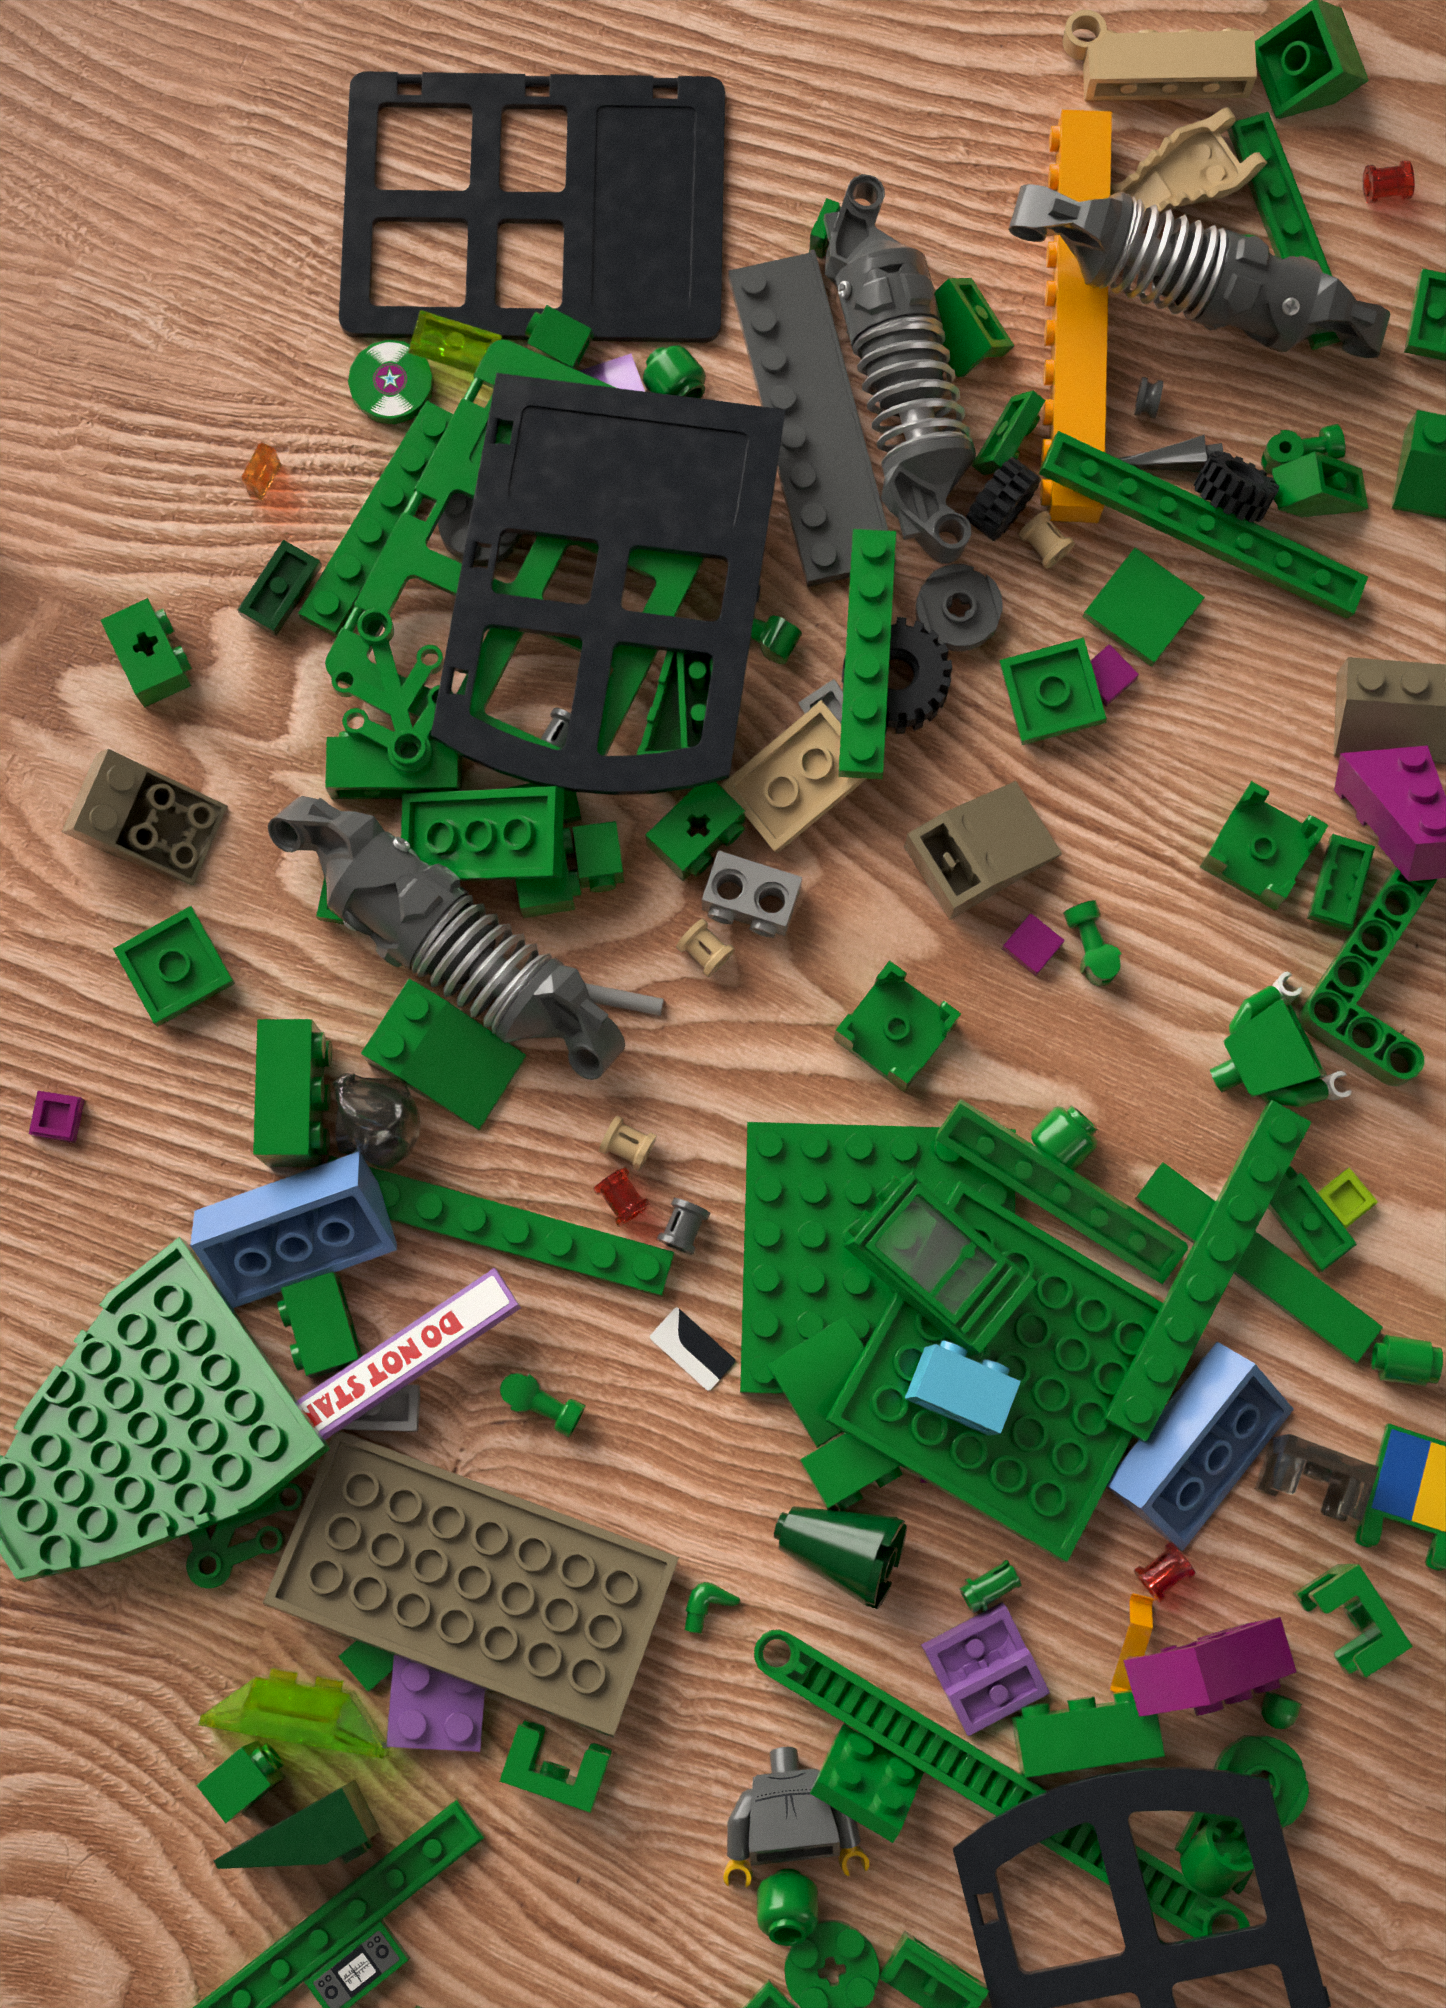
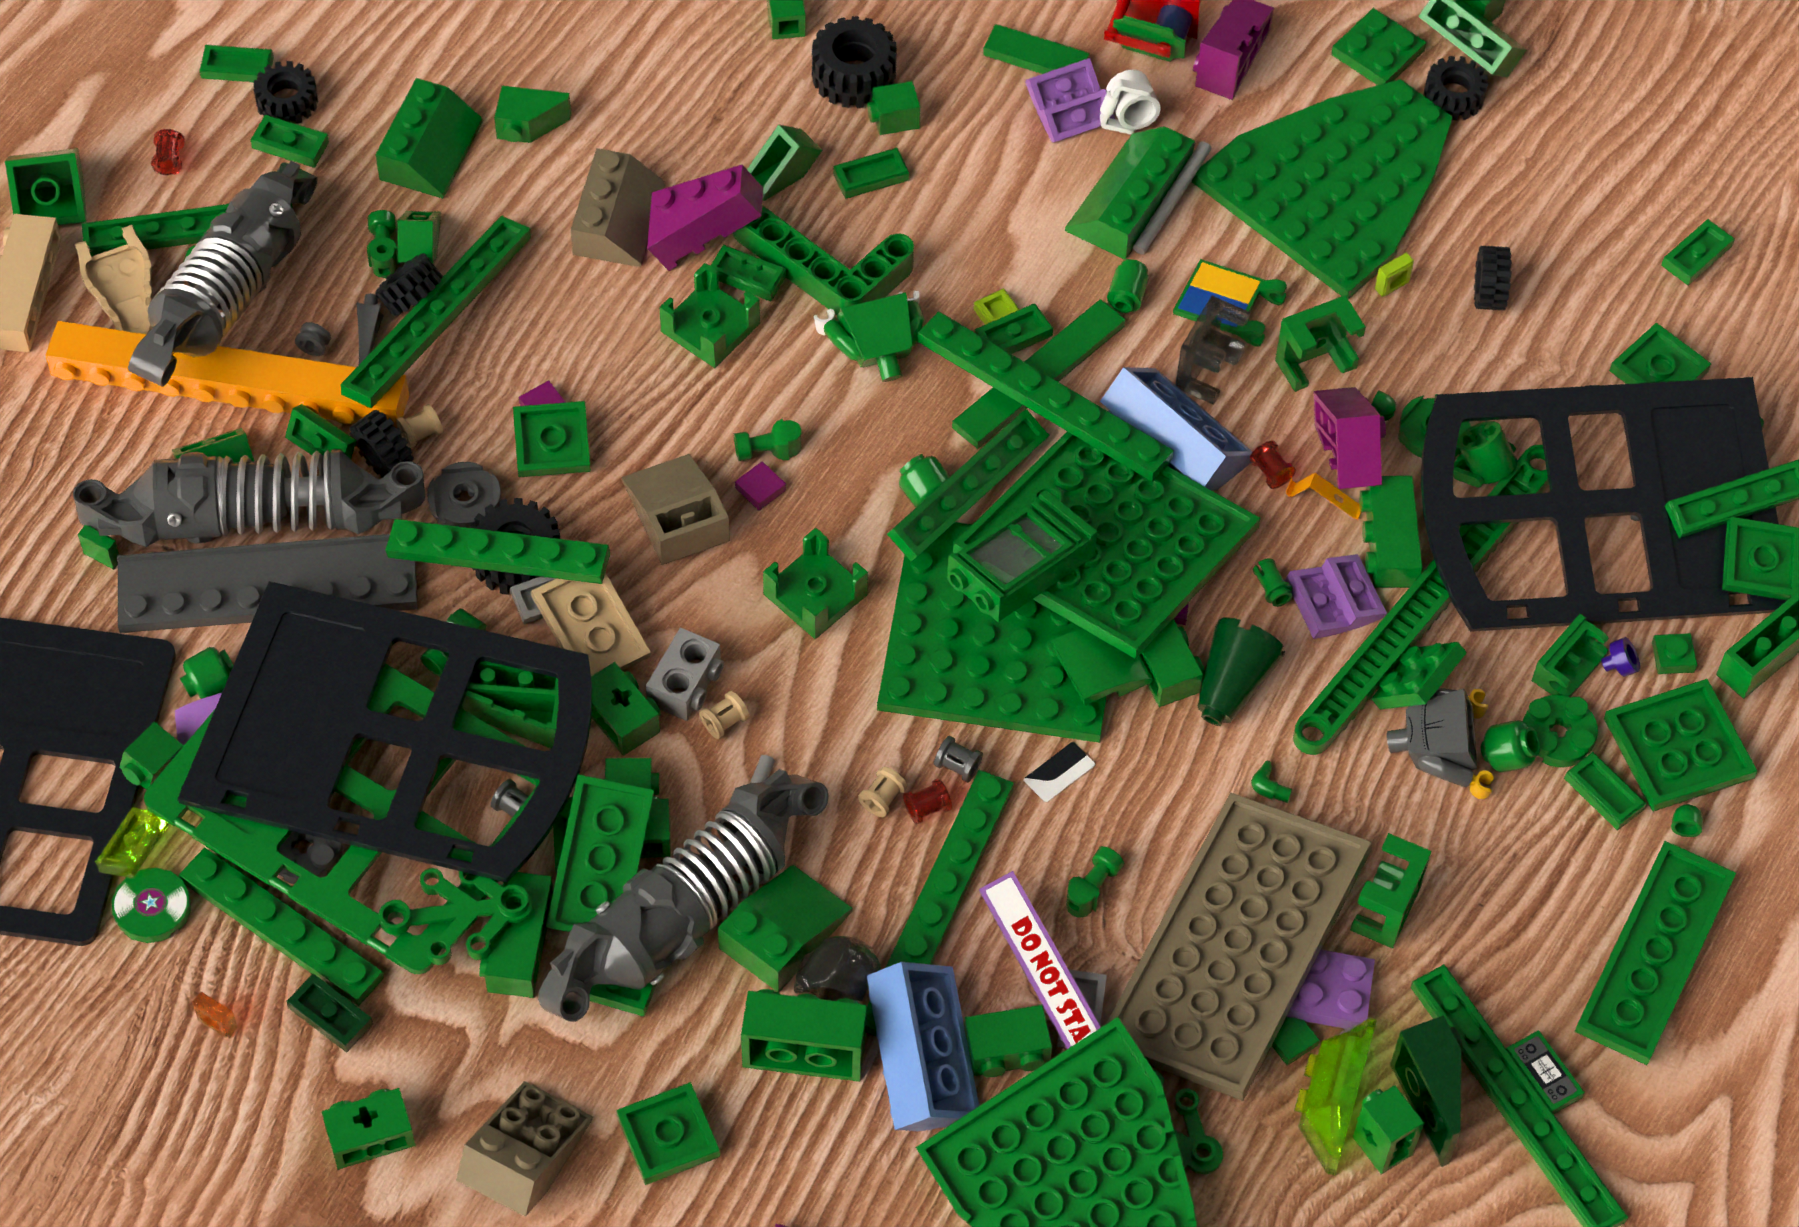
camera: 85 degrees left, 20 degrees down
(963, 1388) = (1122, 554): medium azure brick -> none
(1143, 607) = (492, 368): green tile -> none

